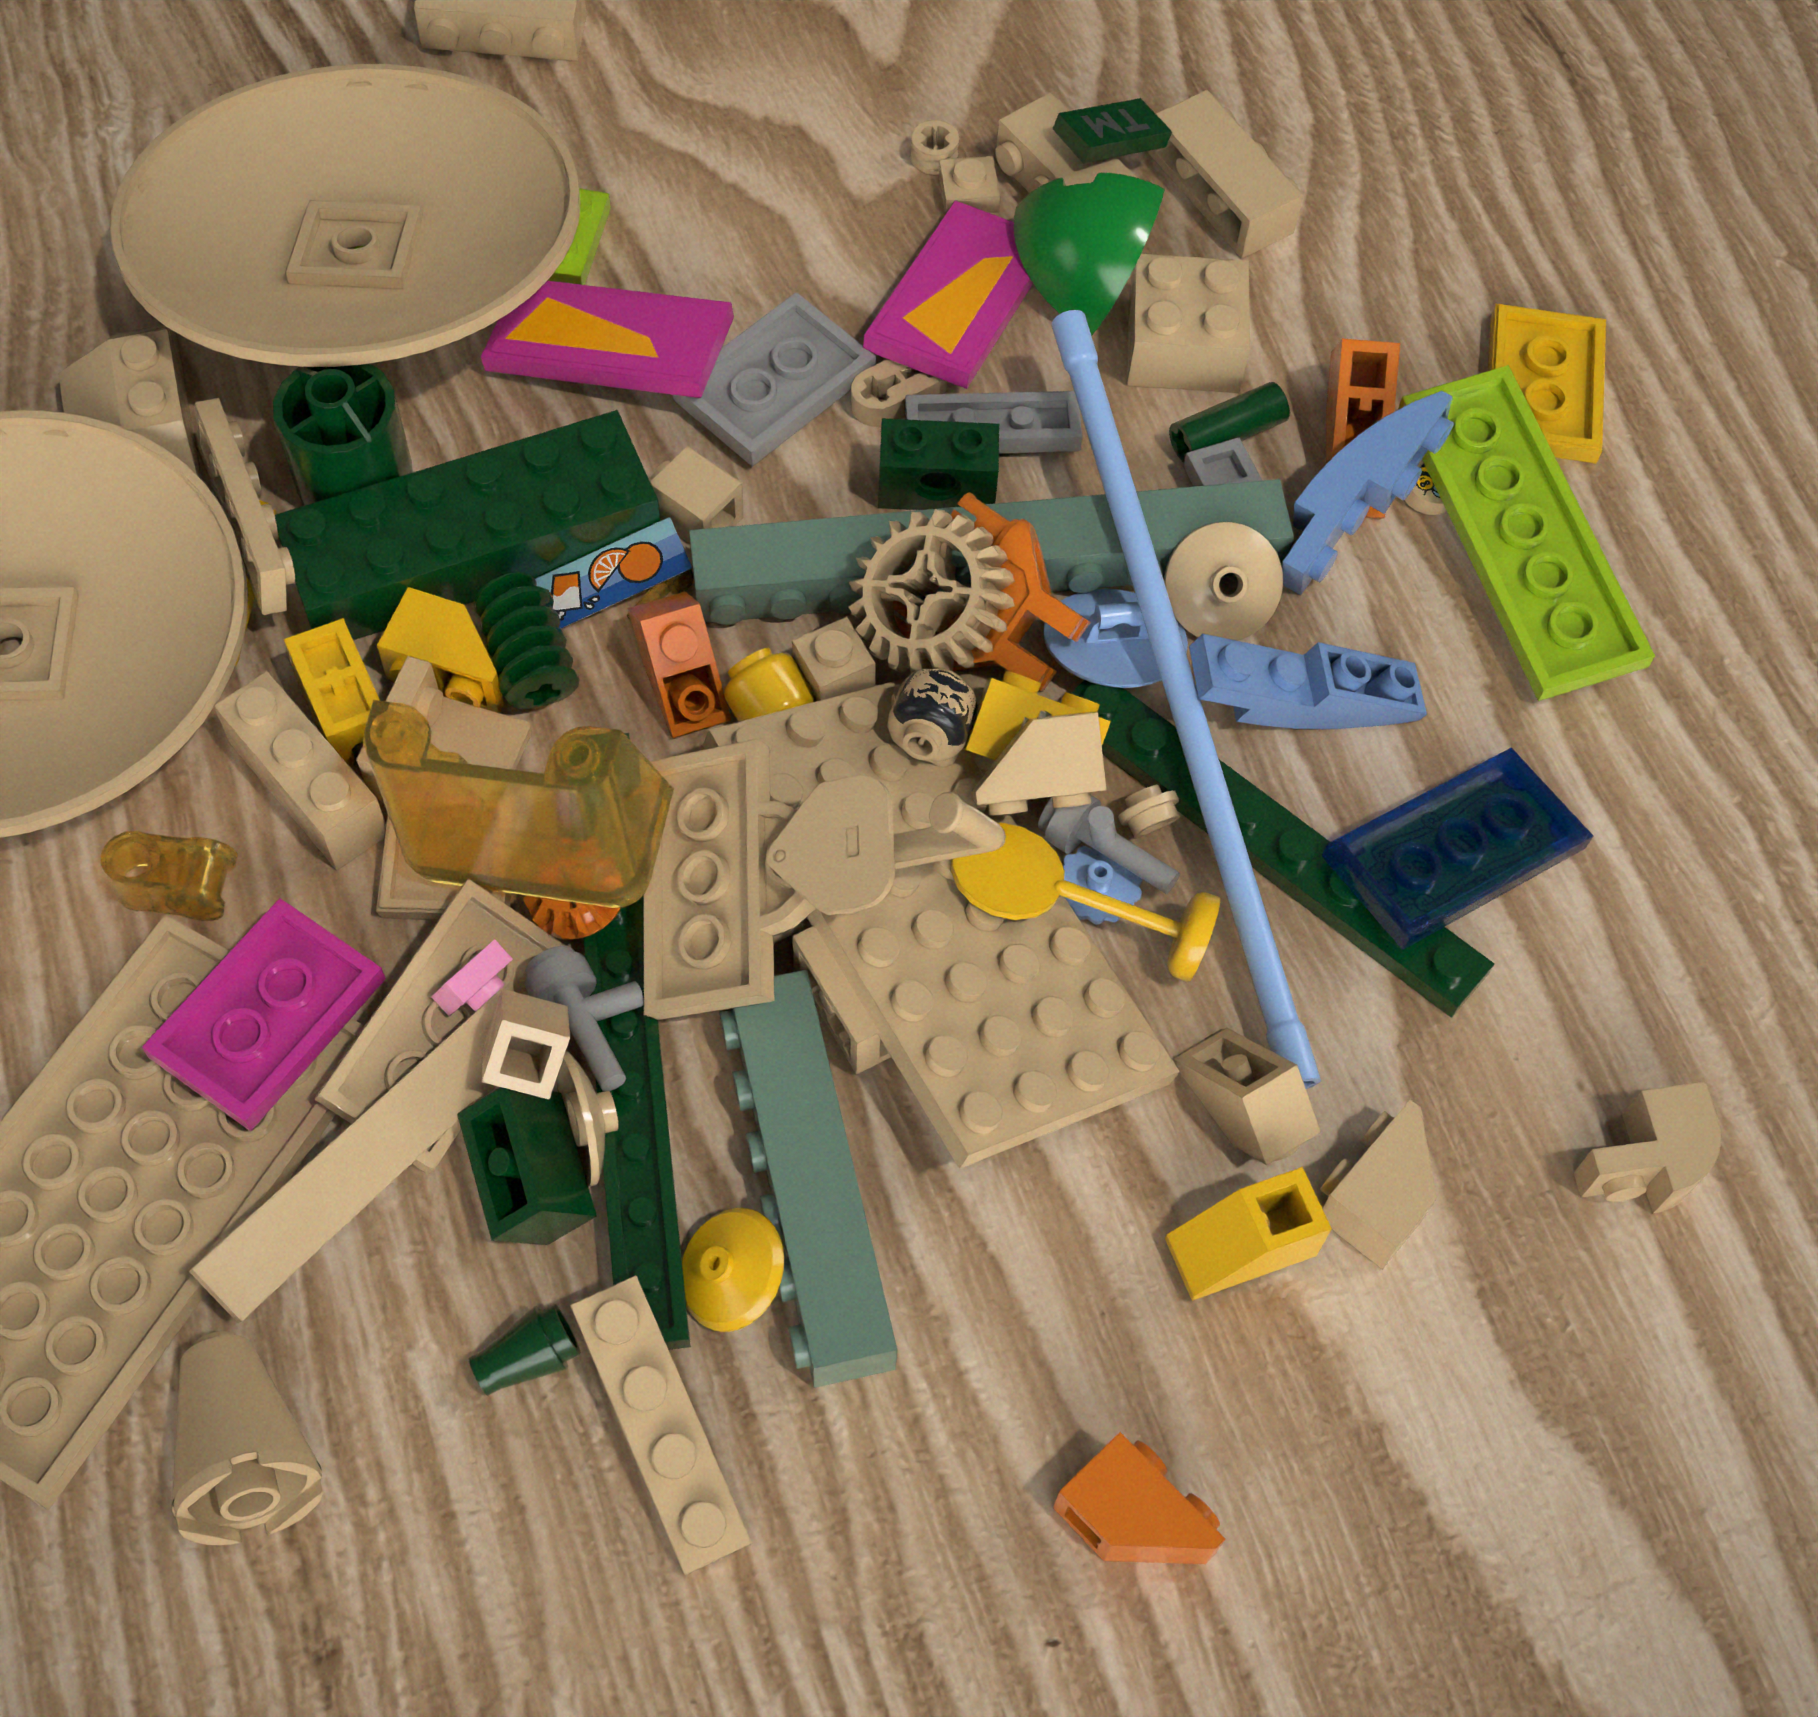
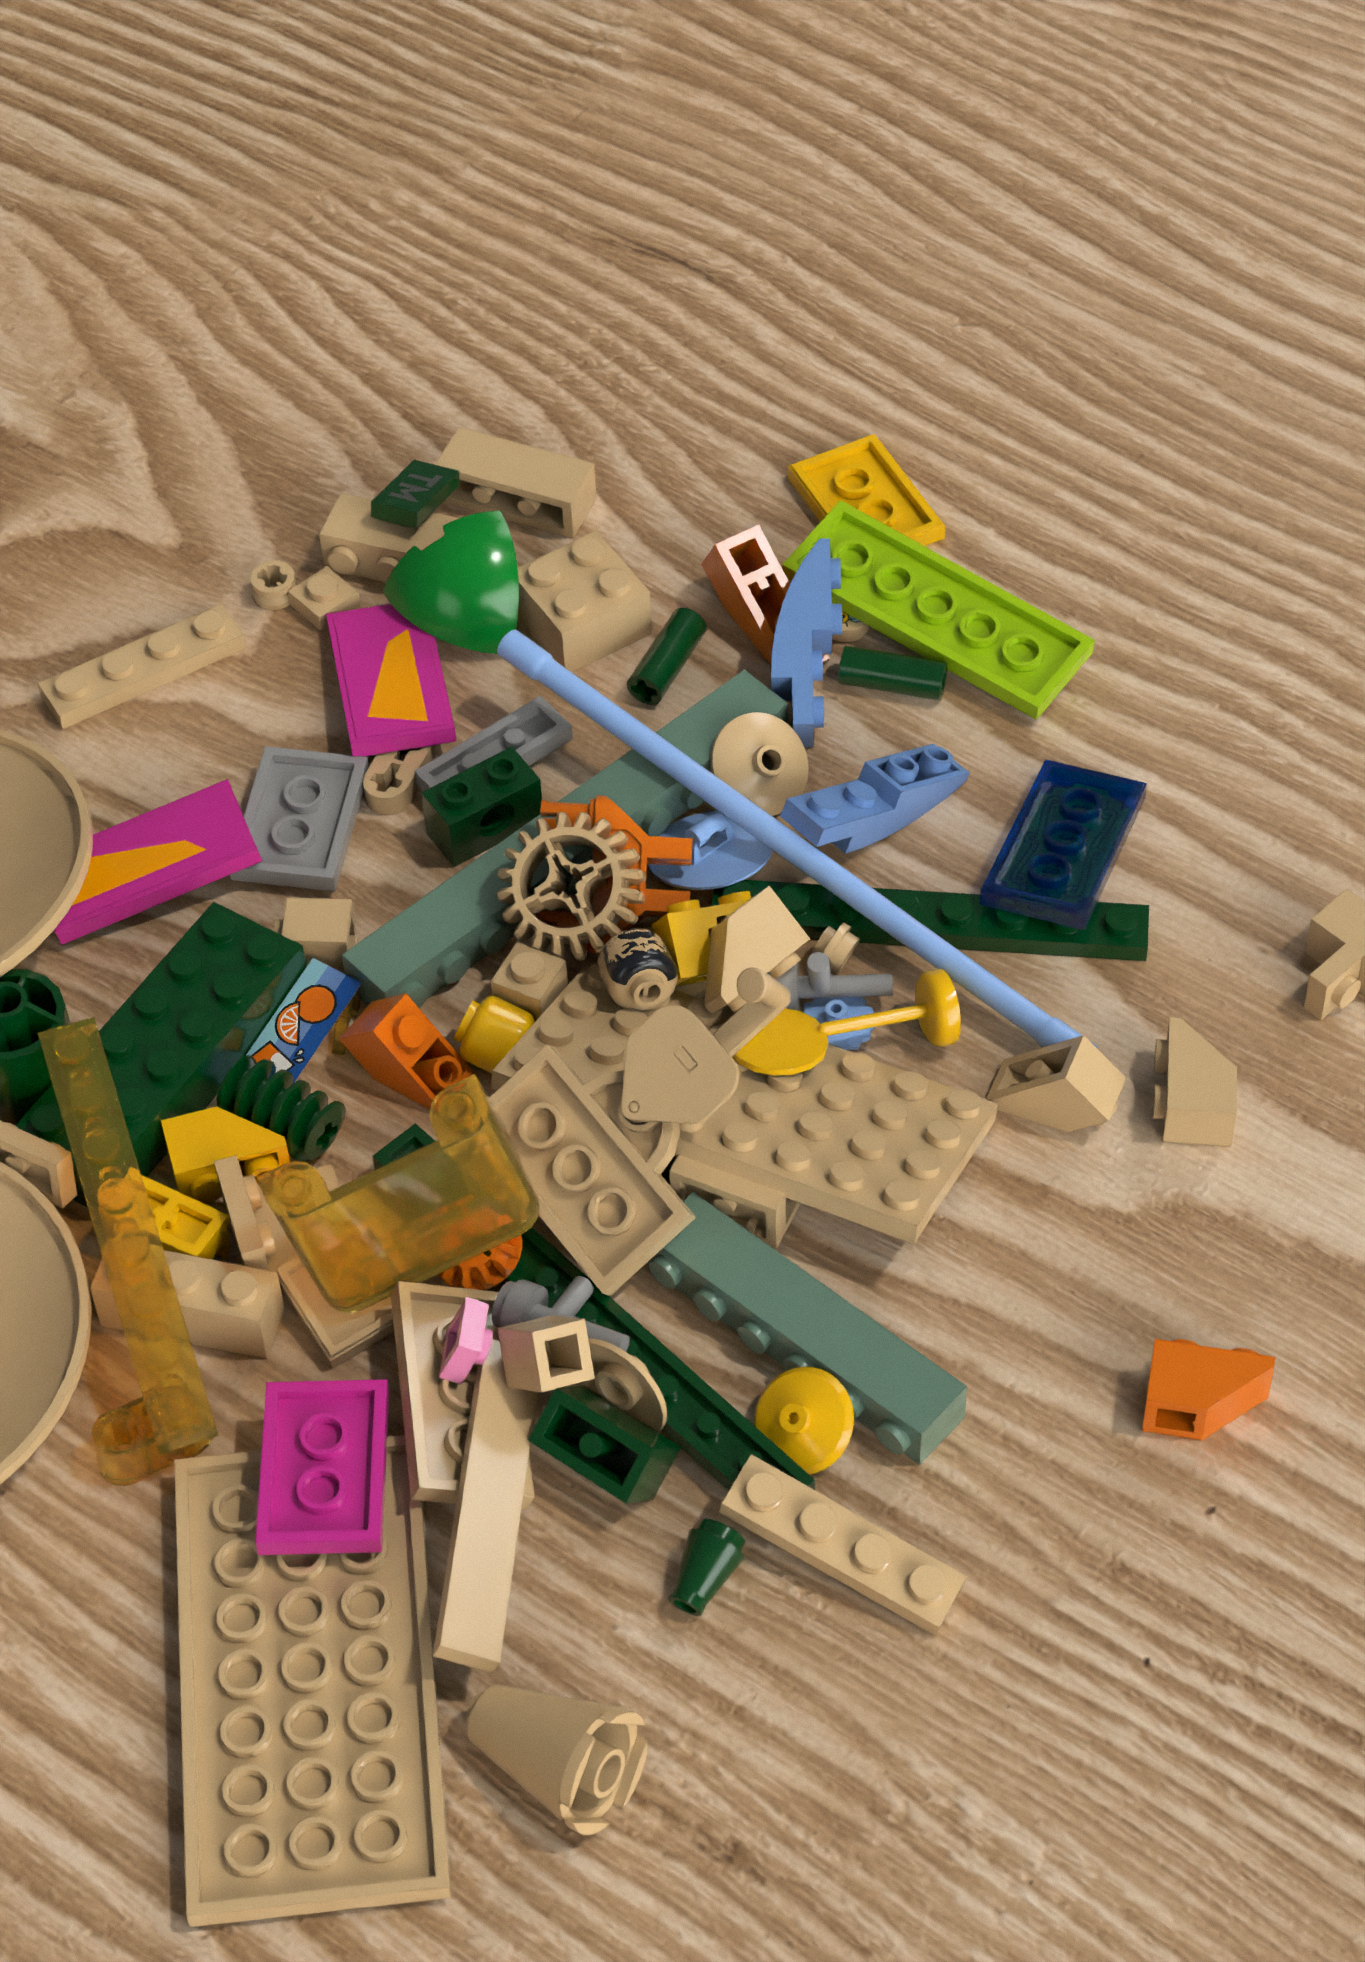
camera: 30 degrees left, 10 degrees down
(266, 680) = (128, 1236): none -> clear yellow plate
(763, 156) = (142, 666): none -> tan plate
(1220, 464) = (687, 688): light grey plate -> none
(1250, 1234) = (1134, 1169): yellow slope -> none
(1431, 568) = (892, 673): none -> dark green piece

